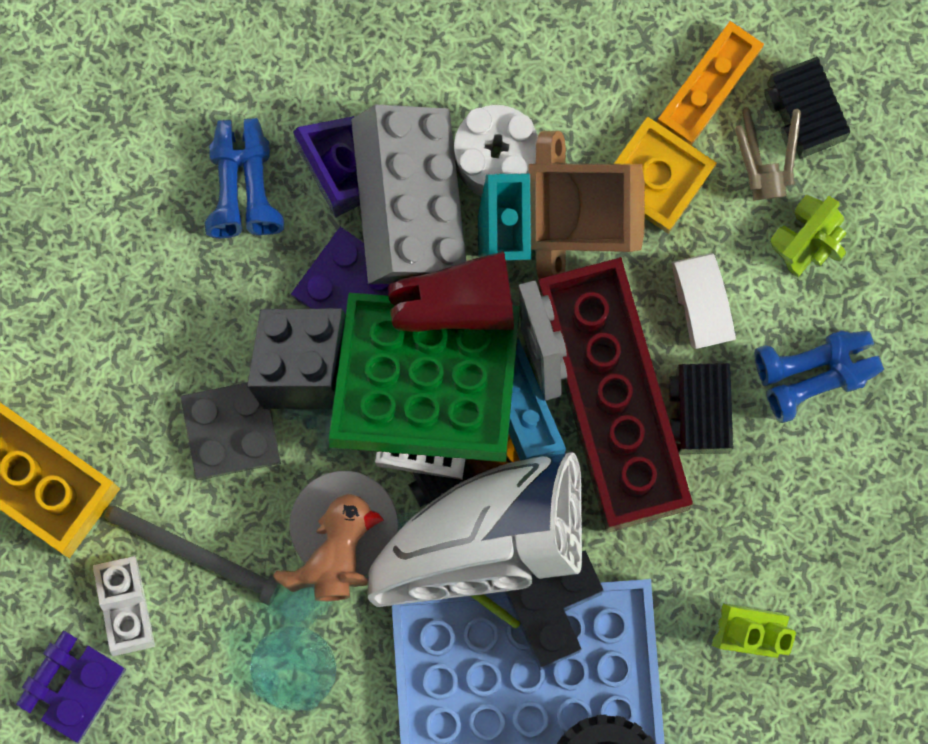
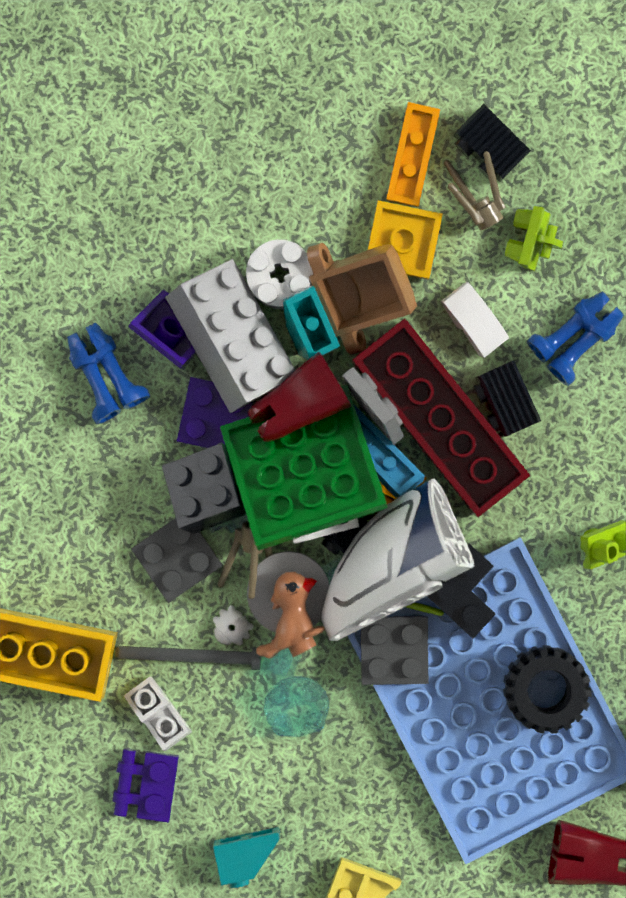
camera: 20 degrees left, 10 degrees up
(258, 553) = (236, 618): none -> white animal
(320, 437) = (245, 538): none -> dark tan plant
(440, 649) = (395, 651): none -> dark grey plate

